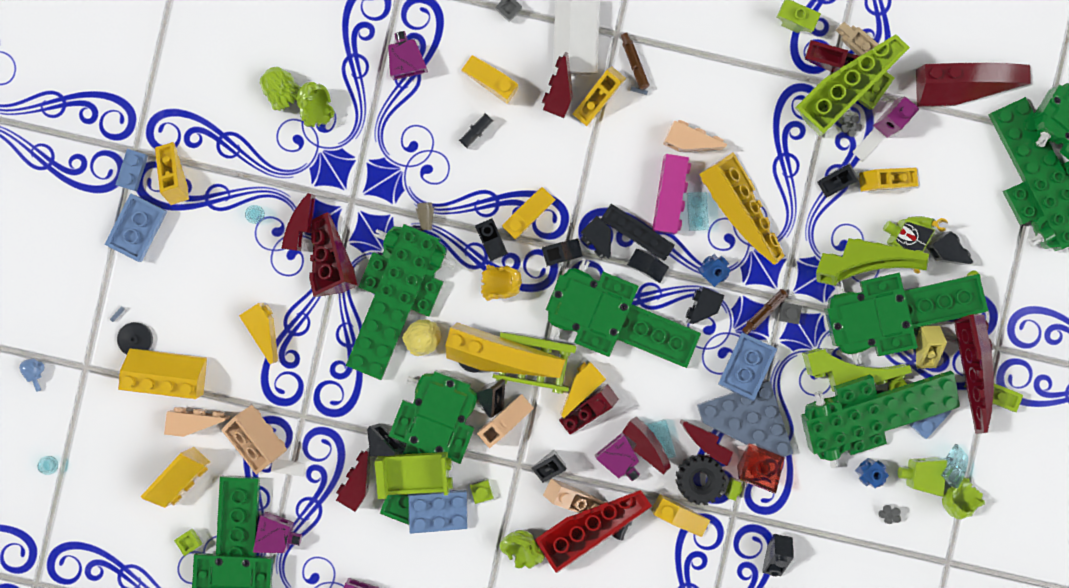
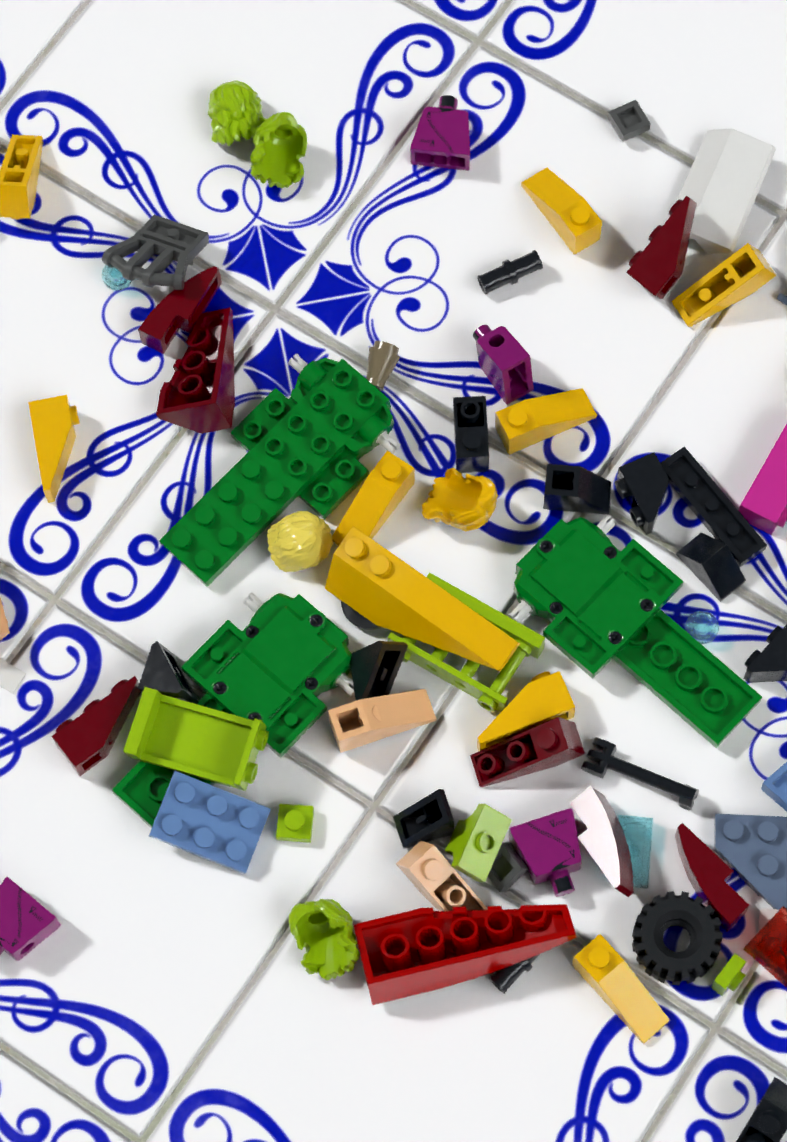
camera: 25 degrees right, 20 degrees down
(275, 184) = (159, 237): none -> dark grey plate
(453, 299) = (377, 497): none -> yellow slope
(496, 193) = (504, 362): none -> magenta torso
(582, 472) = (478, 841): none -> lime brick
(599, 476) = (506, 868): none -> dark grey plate
(630, 396) = (607, 760): none -> black hinge
(655, 303) = (702, 626): none -> clear light blue plate

